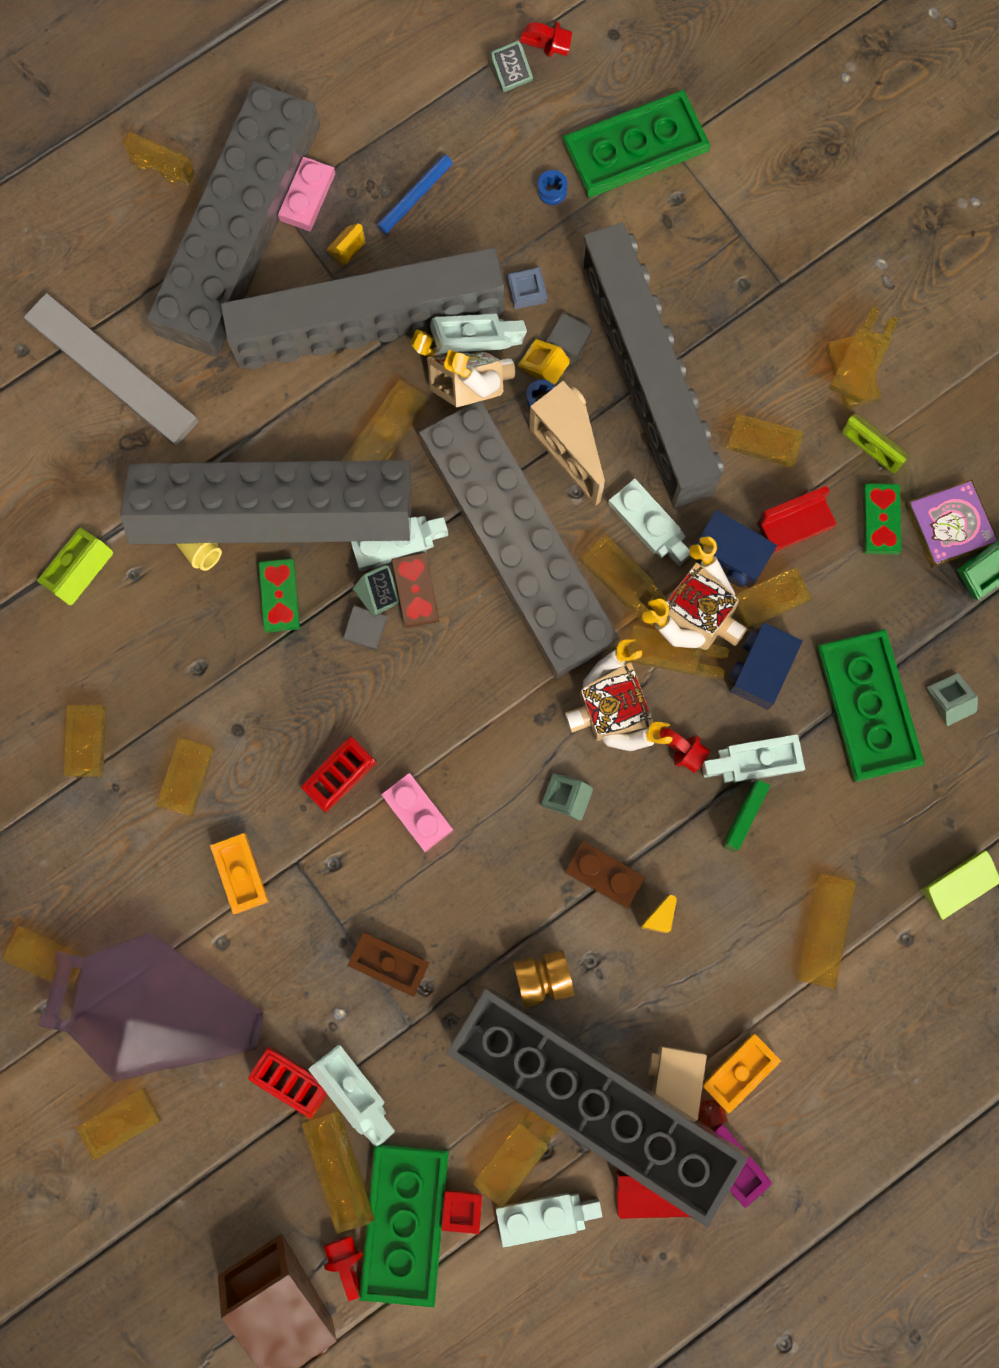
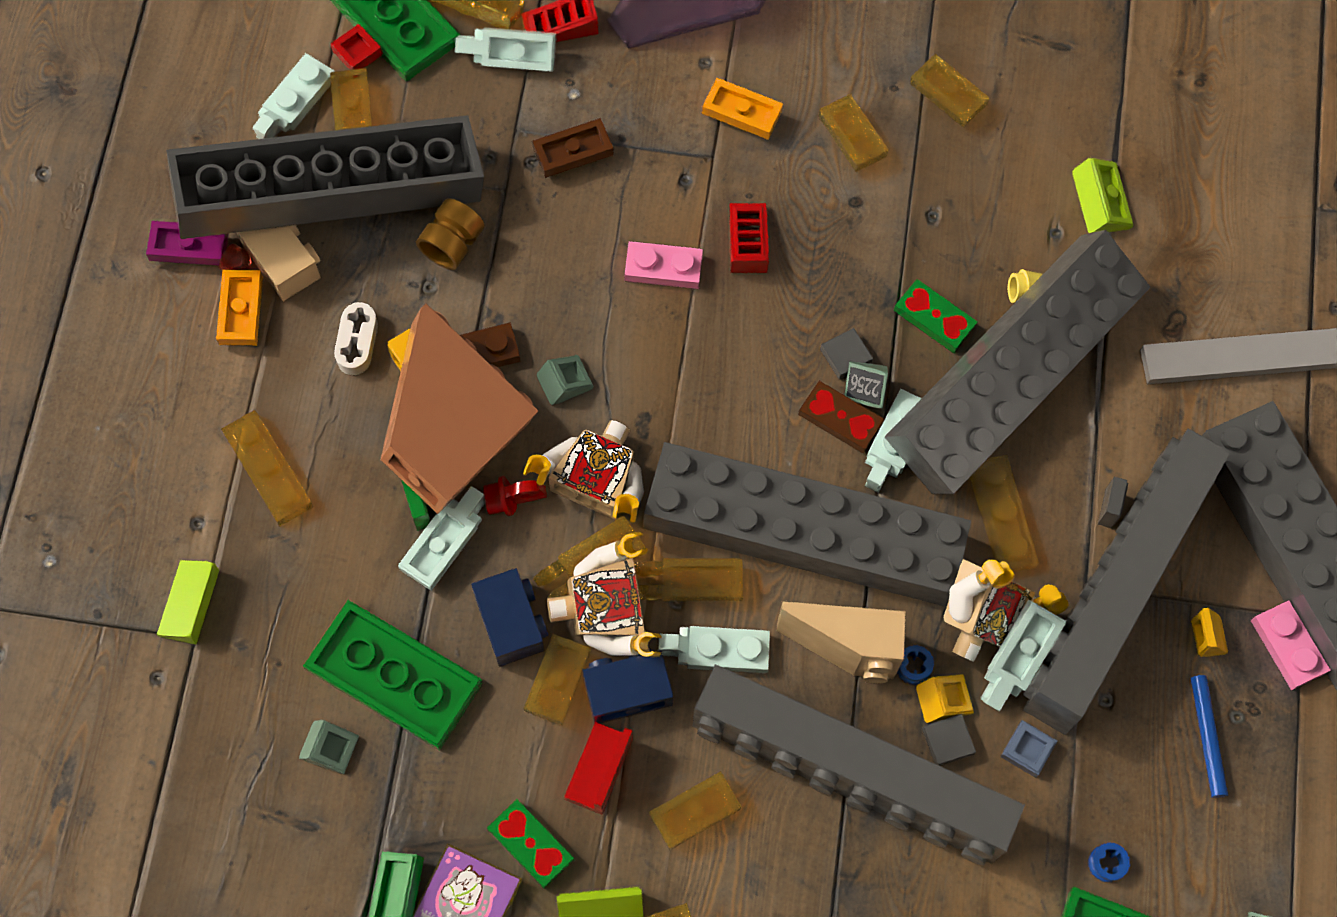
camera: 130 degrees right, 10 degrees down
(312, 367) = (1113, 502): none -> dark grey tile
(674, 961) = (347, 337): none -> white beam
(678, 834) = (448, 412): none -> nougat slope

